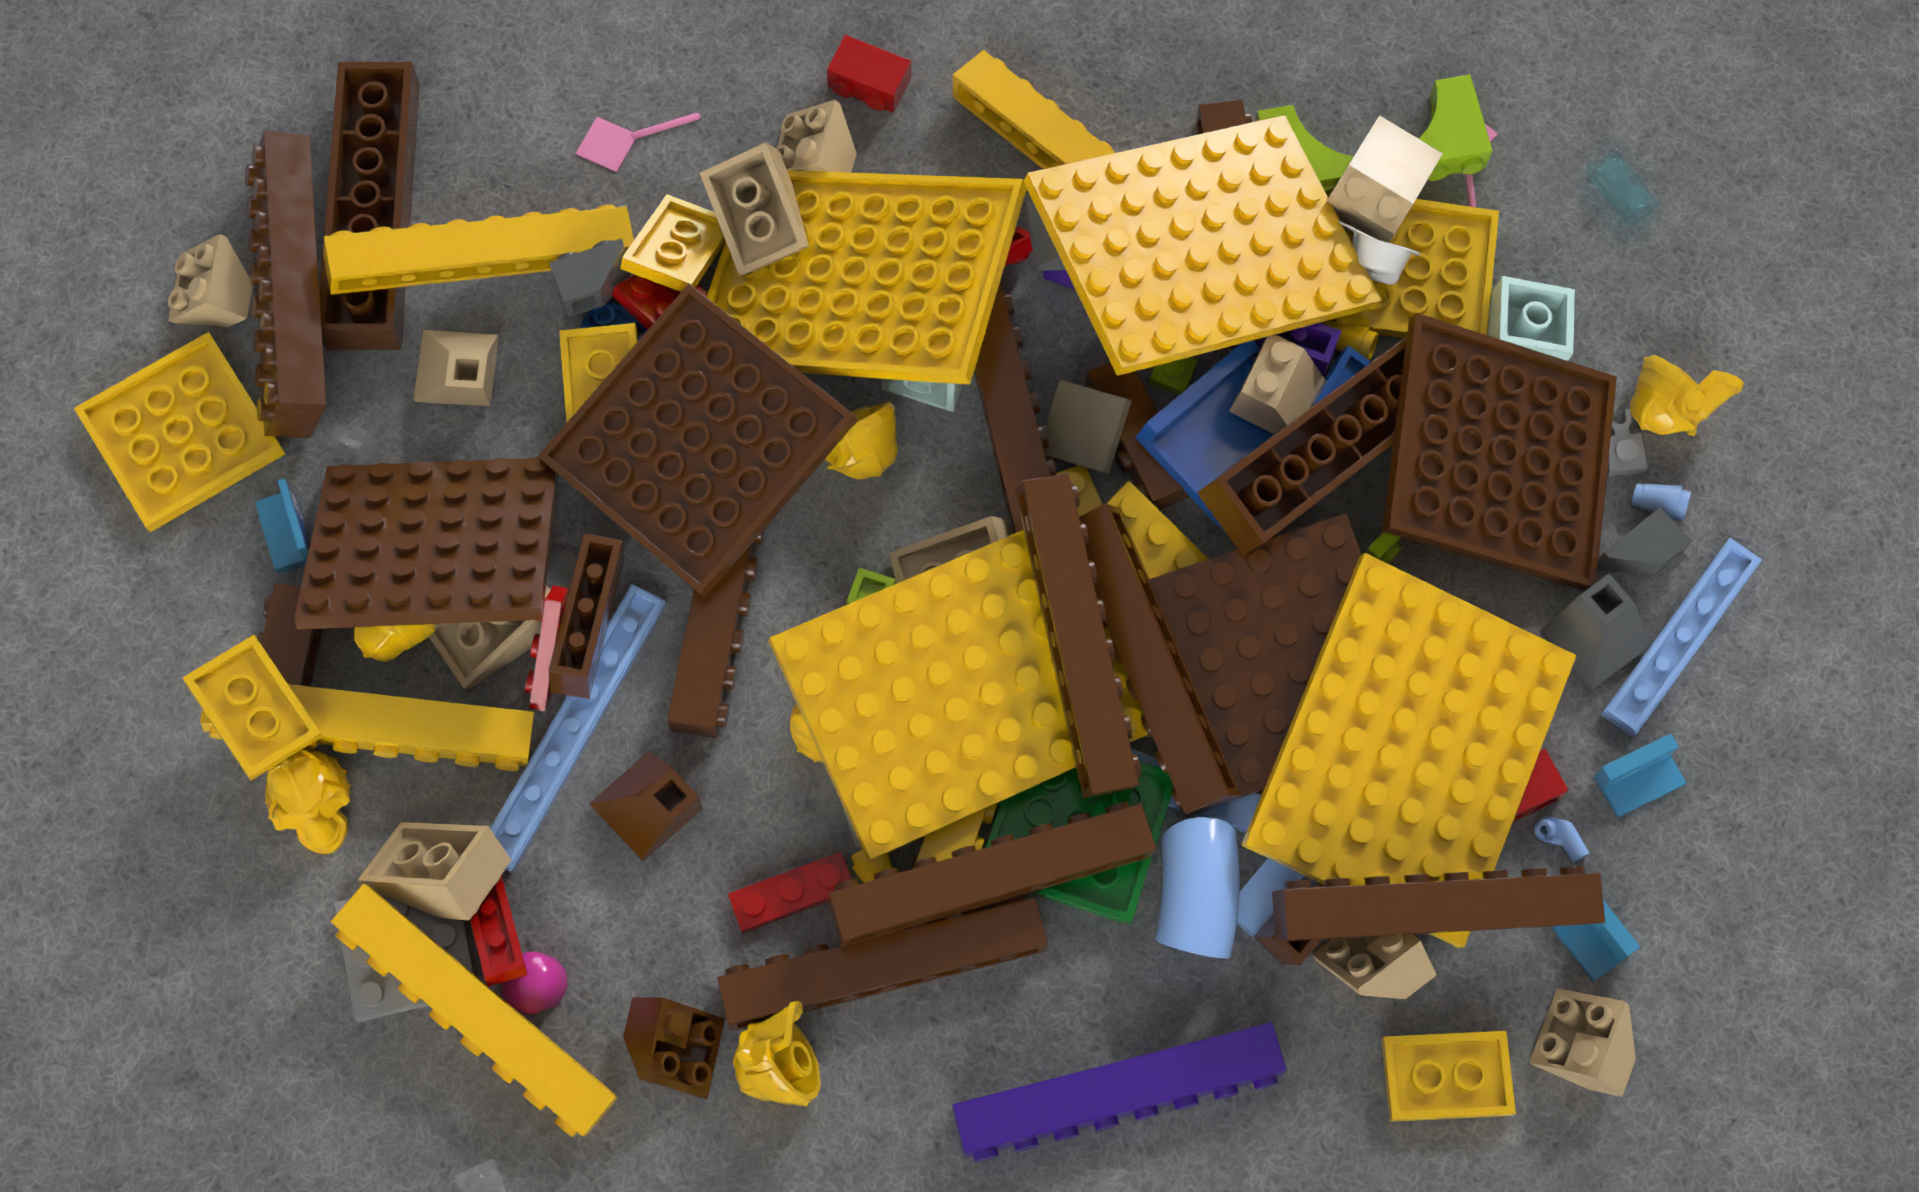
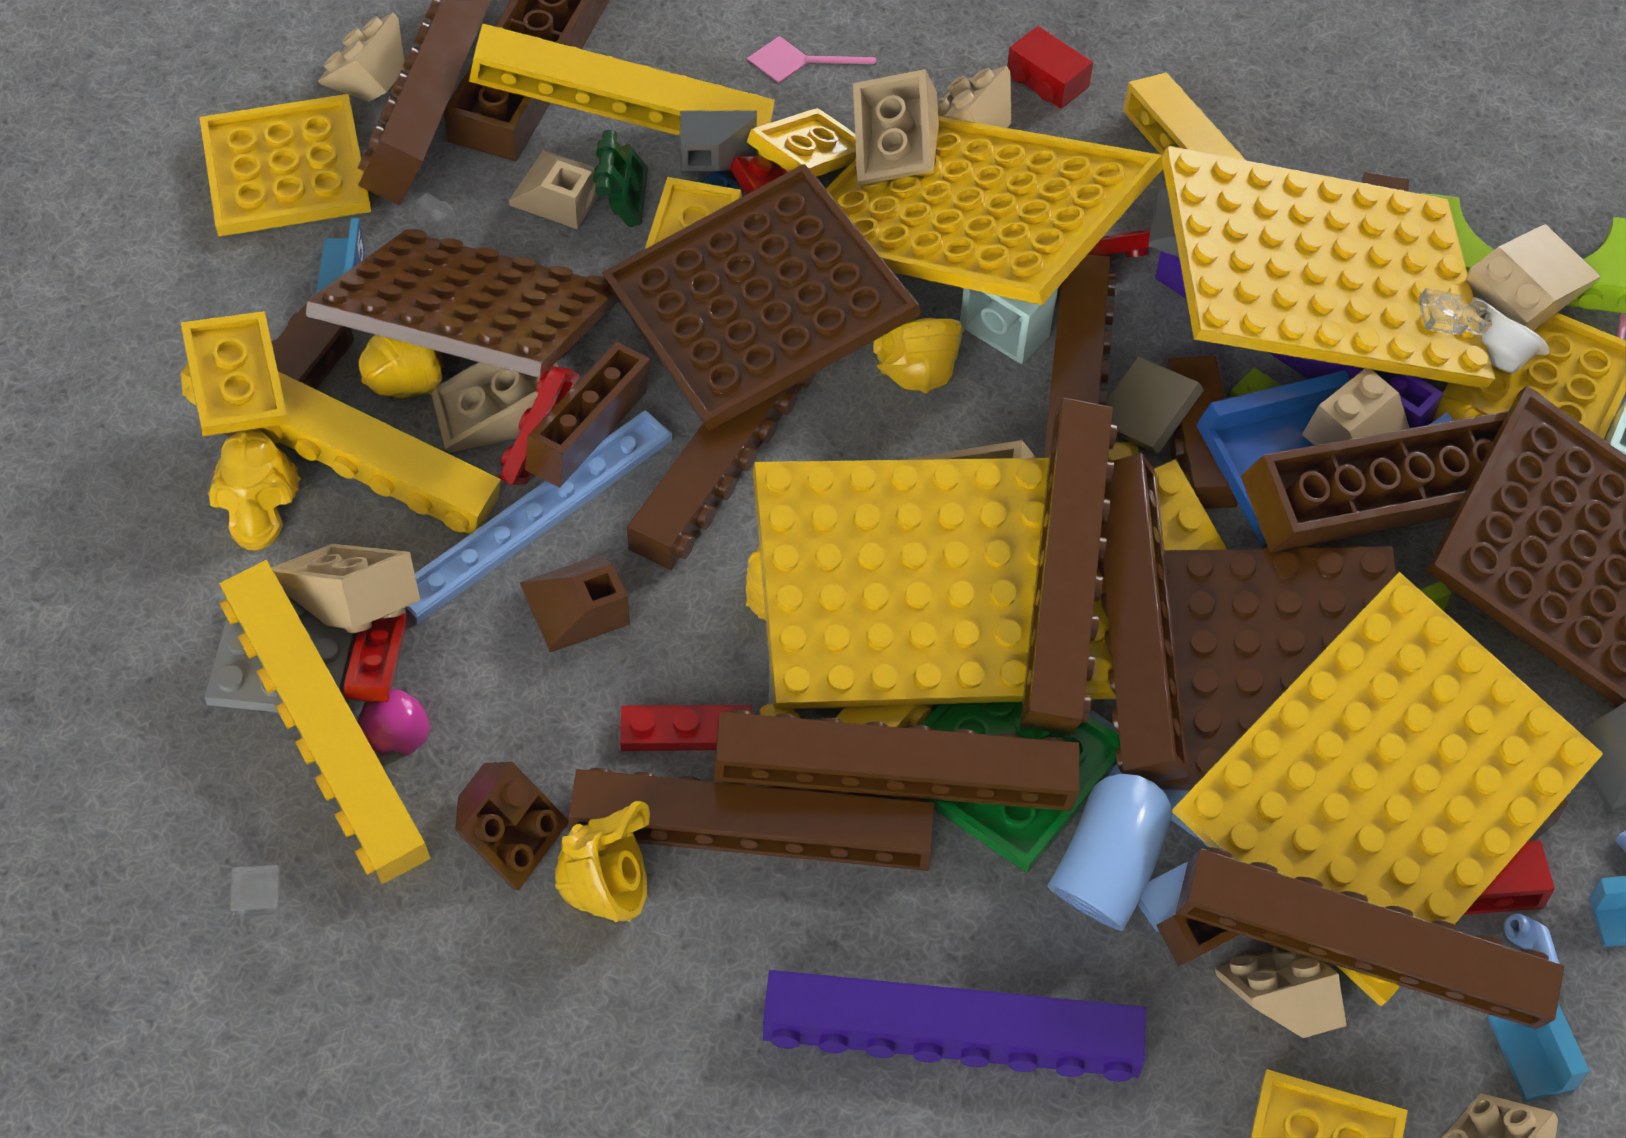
camera: 20 degrees right, 15 degrees down
(513, 342) = (621, 177): none -> dark green plate
(1325, 253) = (1448, 313): none -> clear plate

